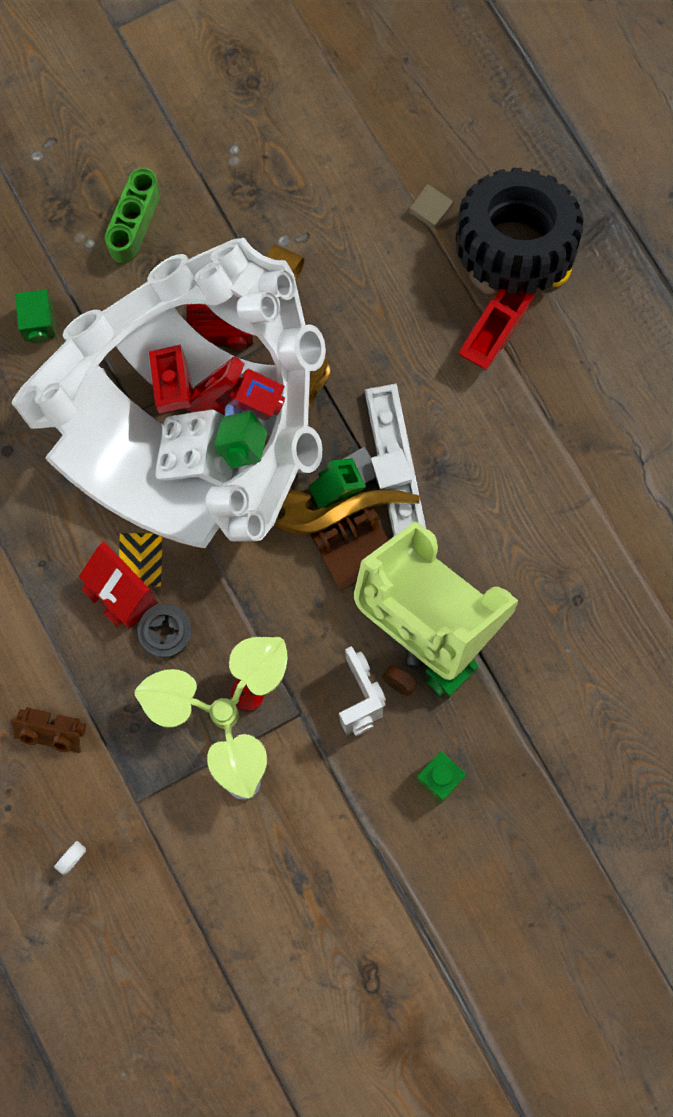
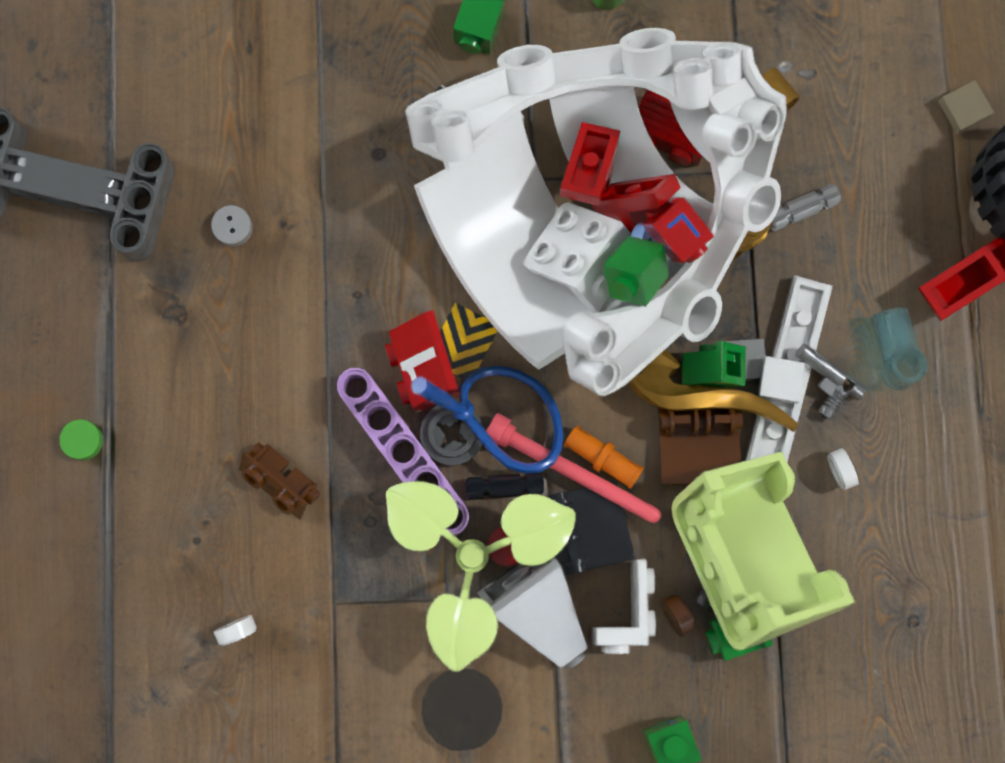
camera: 20 degrees right, 5 degrees up
(120, 652) = (394, 434): none -> lavender beam
(164, 607) = (464, 411): none -> blue piece
(203, 611) = (505, 435): none -> coral piece
(220, 651) = (504, 485): none -> black axle
(272, 832) = (462, 709): none -> clear smoke tile
(287, 591) = (603, 456): none -> orange pin
(295, 726) = (539, 610): none -> slope
(309, 650) = (598, 533): none -> black hinge
(347, 336) = (806, 206): none -> light grey axle
(429, 452) = (831, 381): none -> flat silver hose
(465, 404) = (897, 344): none -> clear light blue piece
(469, 513) = (842, 469): none -> white tile

